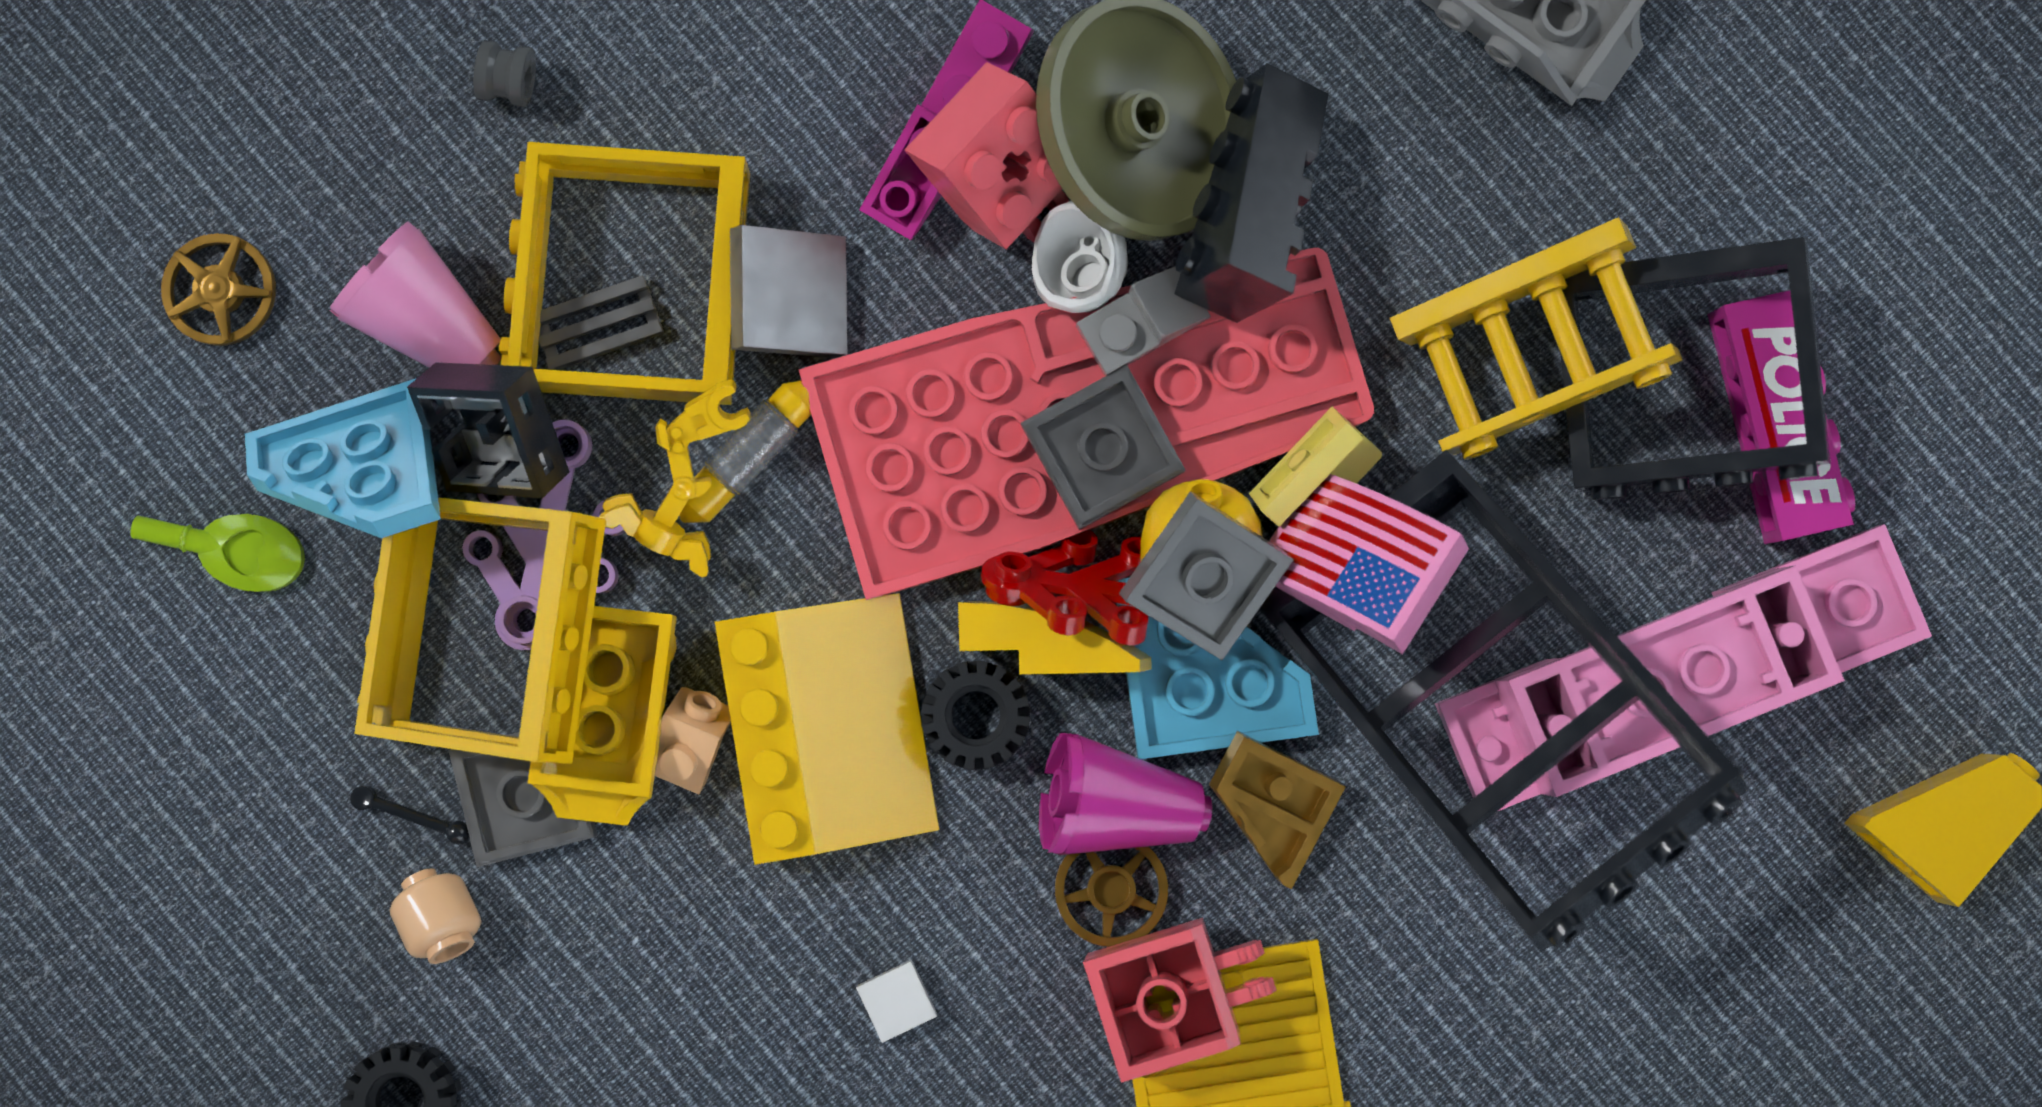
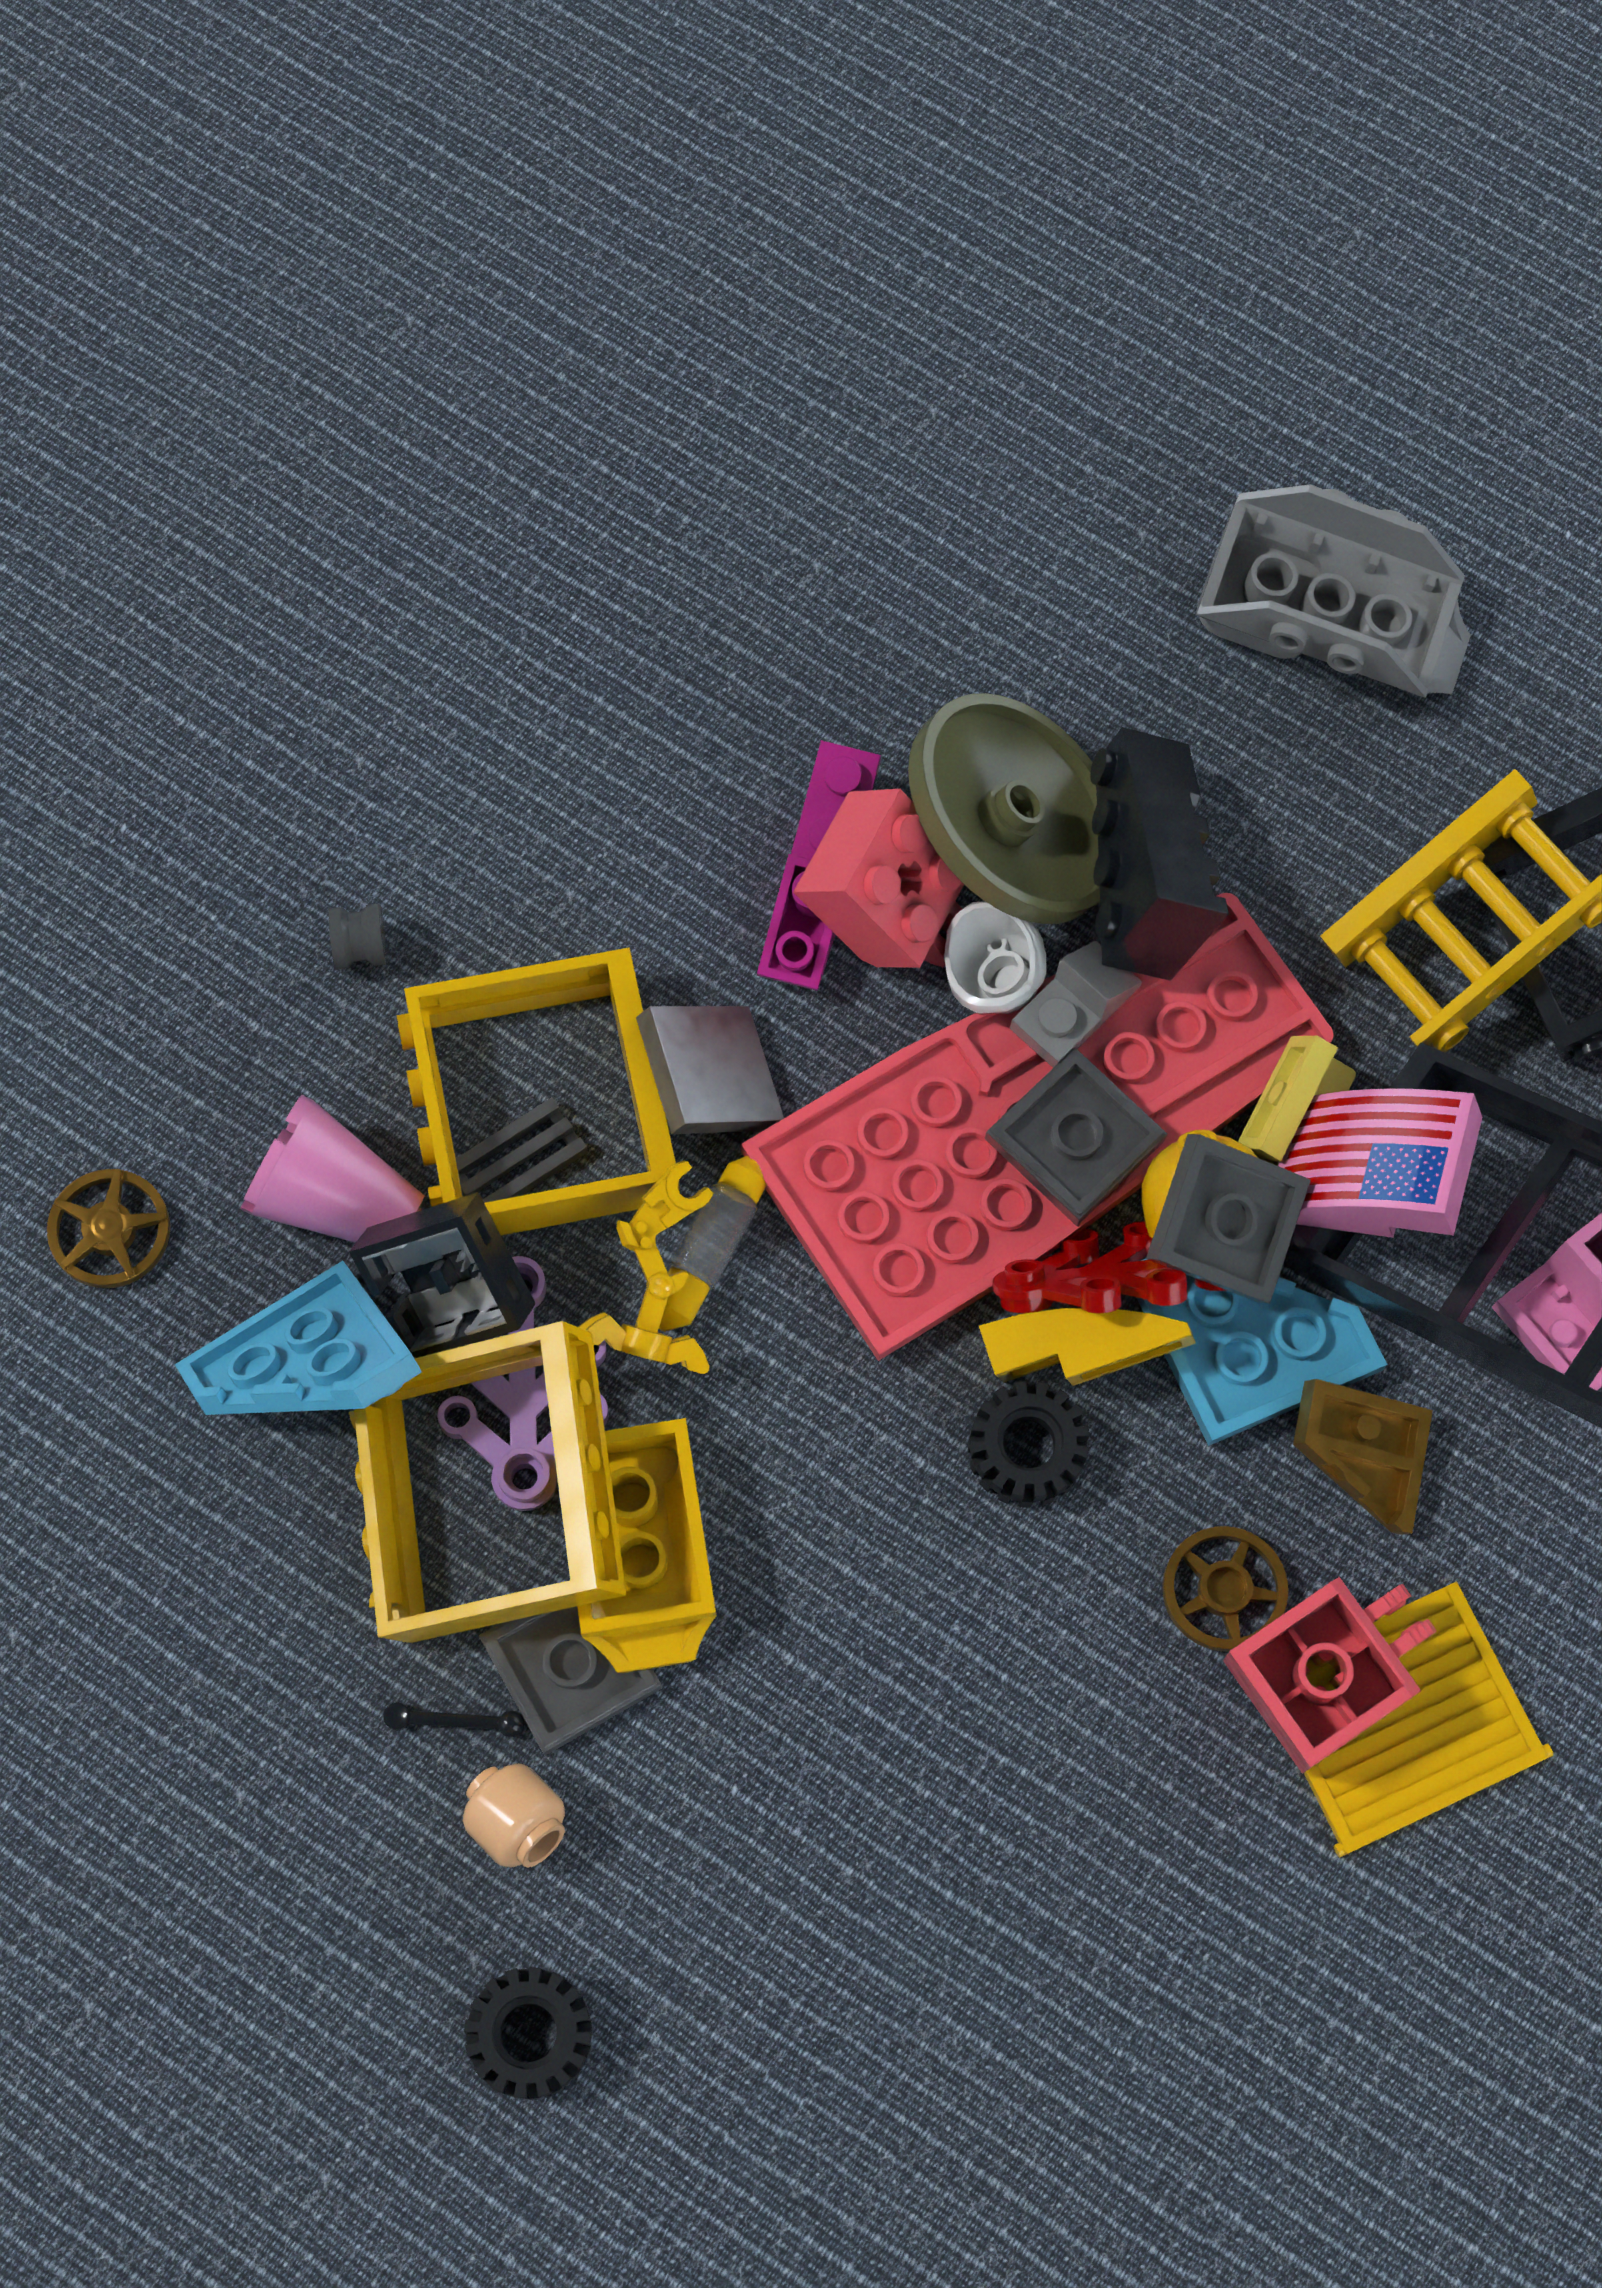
camera: 20 degrees left, 15 degrees down
(235, 549) = (192, 1490): lime piece -> none
(691, 738) = (738, 1550): light nougat bracket -> none
(826, 727) = (875, 1500): yellow slope -> none
(896, 1001) = (1036, 1771): white tile -> none
(1115, 801) = (1200, 1486): dark pink cone -> none

